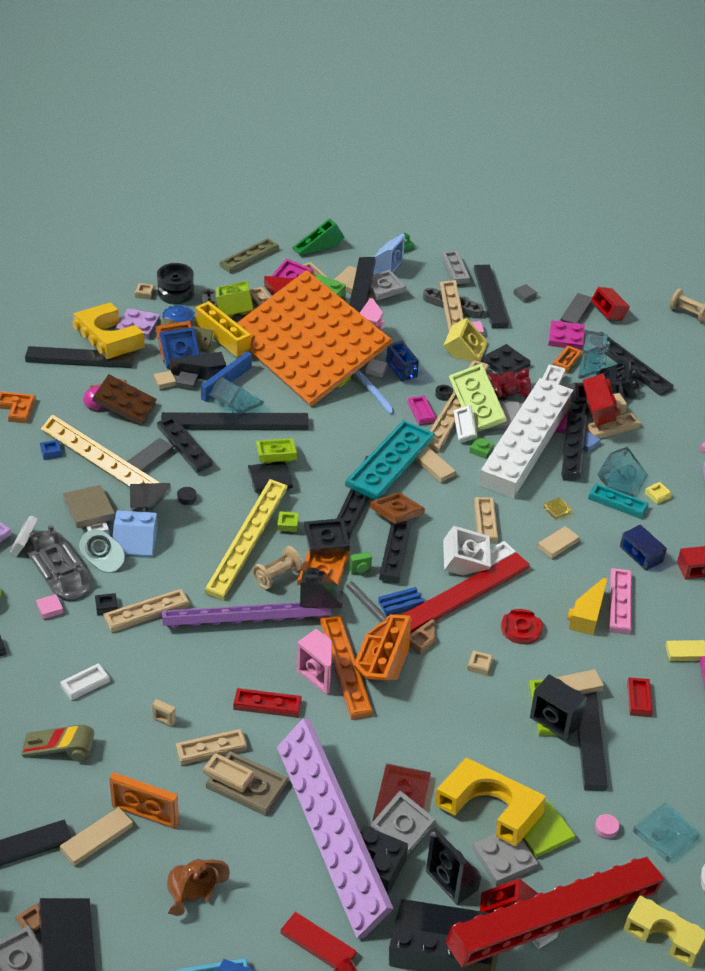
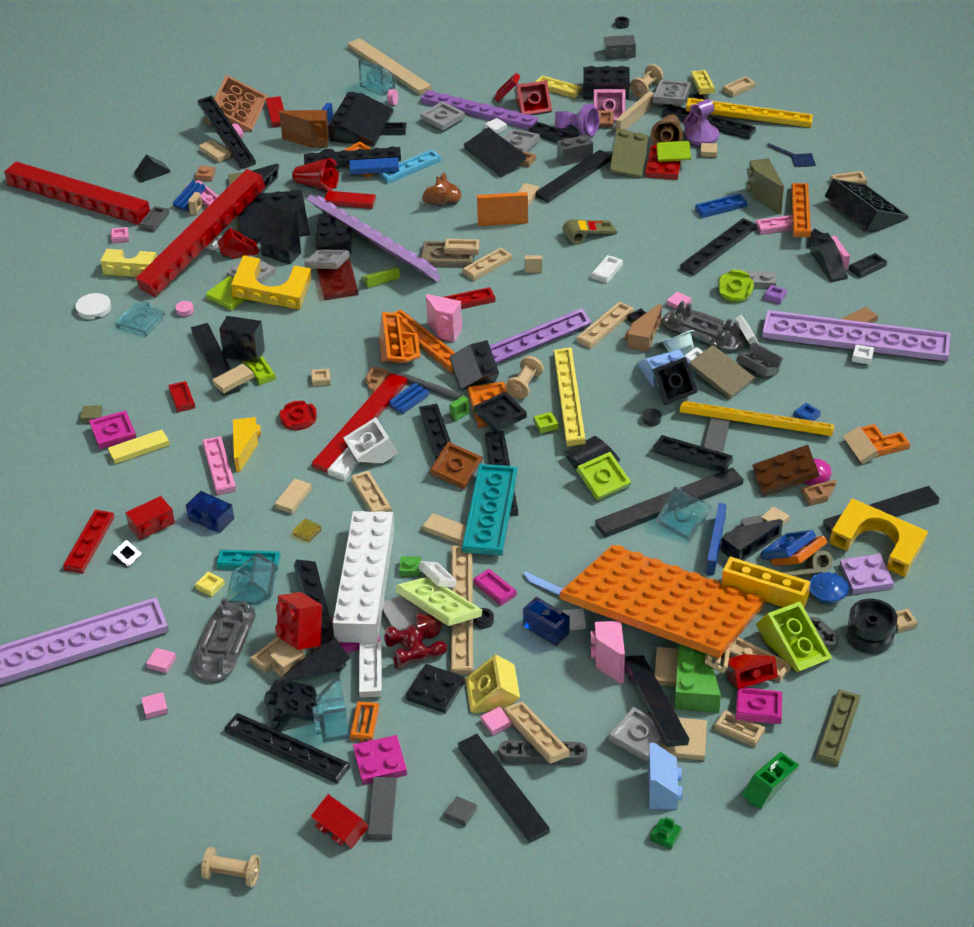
camera: 160 degrees right, 0 degrees up
(40, 403) = (860, 445): none -> tan tile
(44, 503) = (760, 360): none -> dark grey bracket
(117, 578) = (644, 330): none -> medium nougat slope
(353, 776) = (381, 277): none -> lime slope
(455, 267) = (571, 812): light grey plate -> none
(659, 442) = (223, 640): none -> flat silver piece

